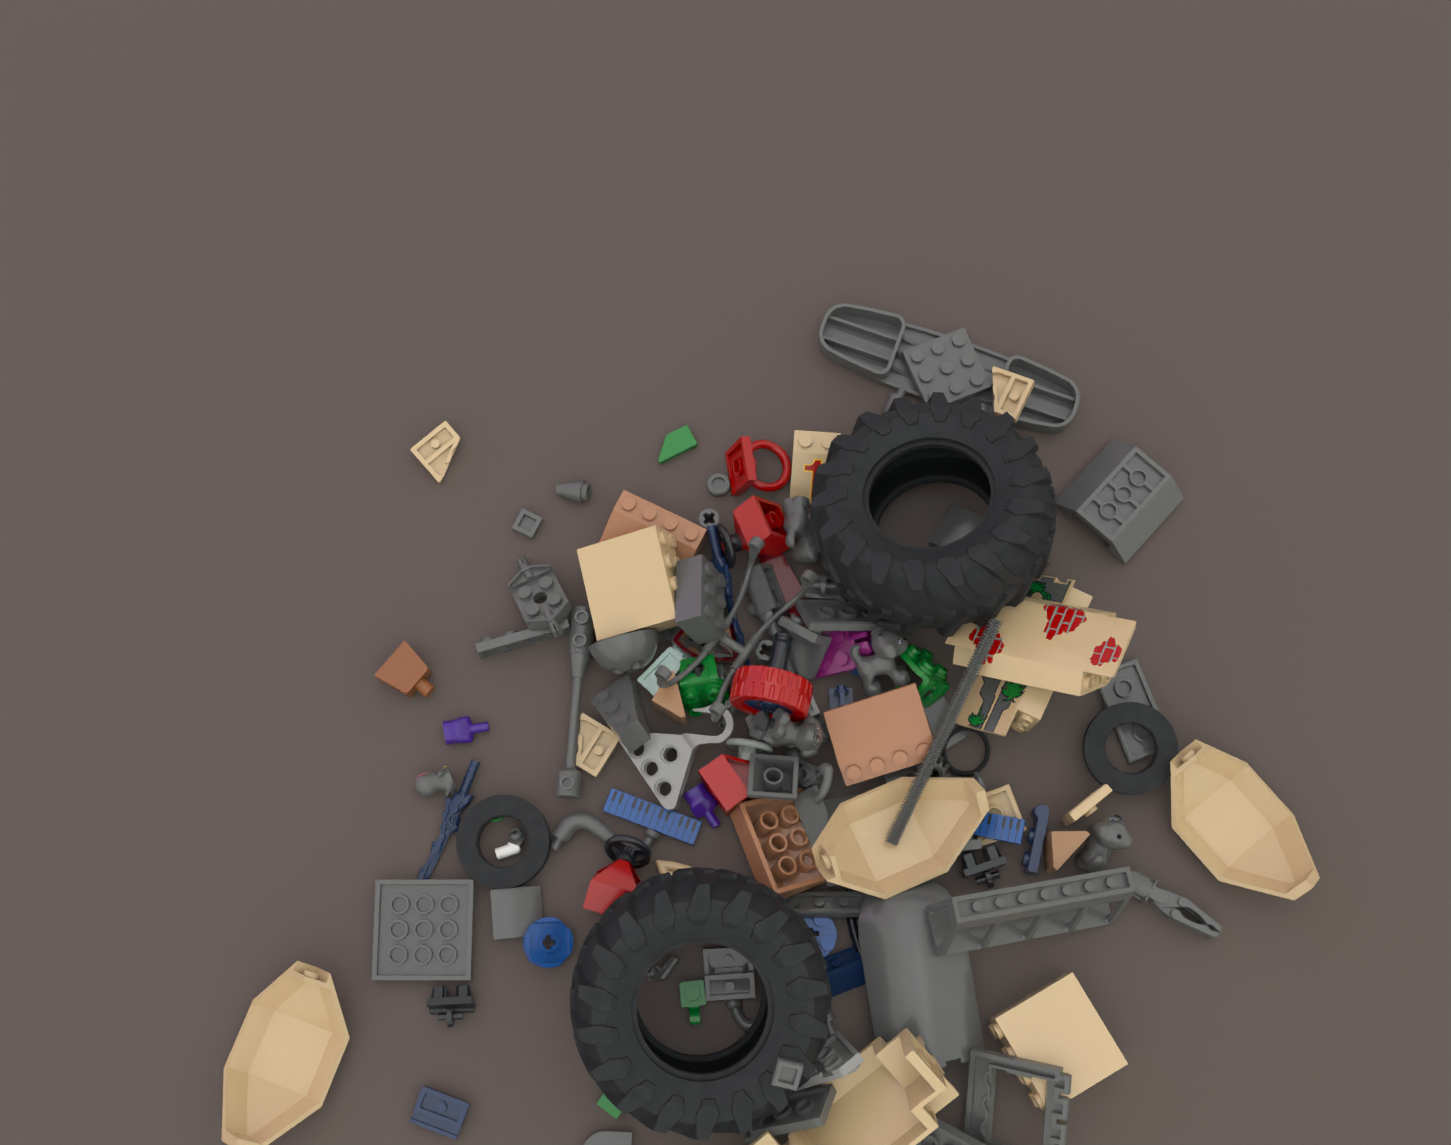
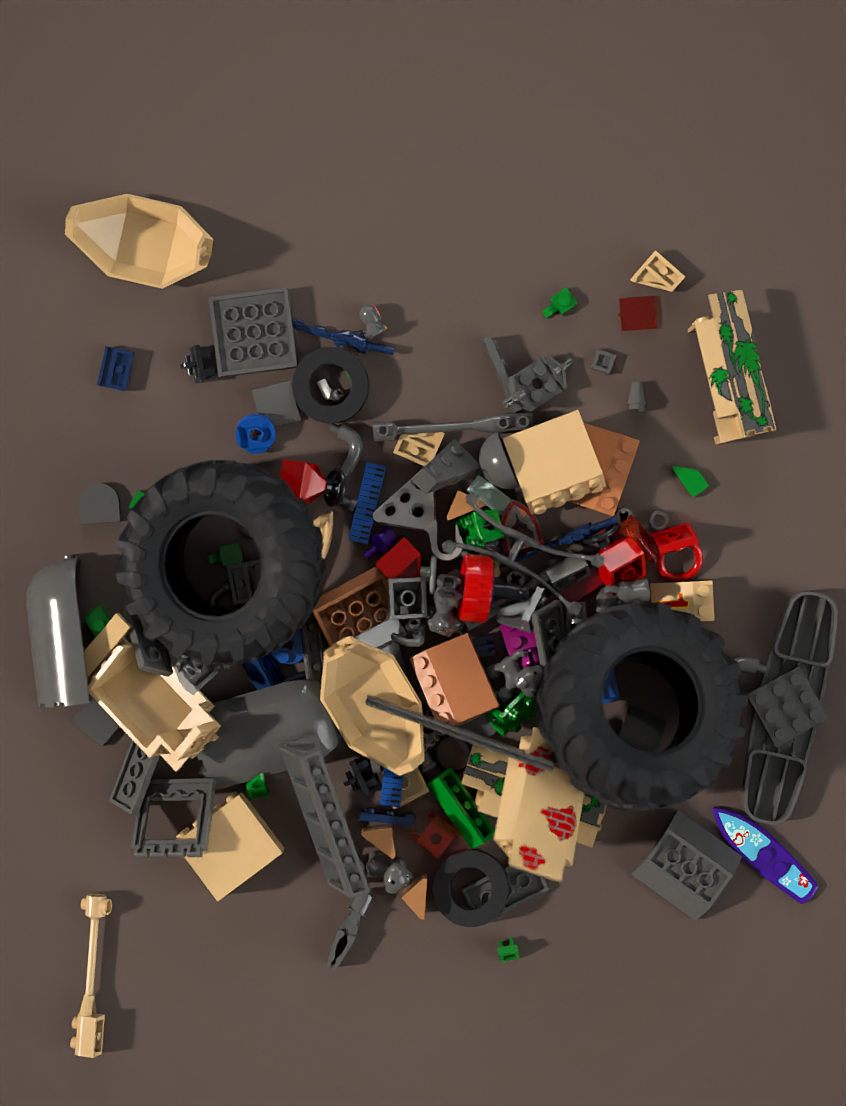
camera: 85 degrees right, 15 degrees up
(406, 672) = (460, 281): torso -> none
(452, 562) = (561, 302): none -> green plate
(462, 730) = (418, 336): dark purple piece -> none
(478, 479) = (637, 313): none -> clear red piece
(559, 376) = (733, 369): none -> panel
(700, 599) = (547, 519): dark grey brick -> none
(723, 509) = (634, 530): none -> clear red tile
(787, 1073) = (171, 637): dark grey tile -> none
(986, 996) = (257, 787): none -> green tile
(1010, 392) = (768, 763): tan wing -> none
(1032, 748) = (461, 808): none -> green brick
(1053, 775) = (439, 826): none -> clear red piece
(1086, 806) = (418, 856): tan plate -> none
(1112, 414) = (765, 854): none -> piece
(1134, 812) = (415, 895): none -> medium nougat slope
(1209, 715) = (509, 952): none -> green tile
(1238, 824) = (419, 979): tan panel -> none

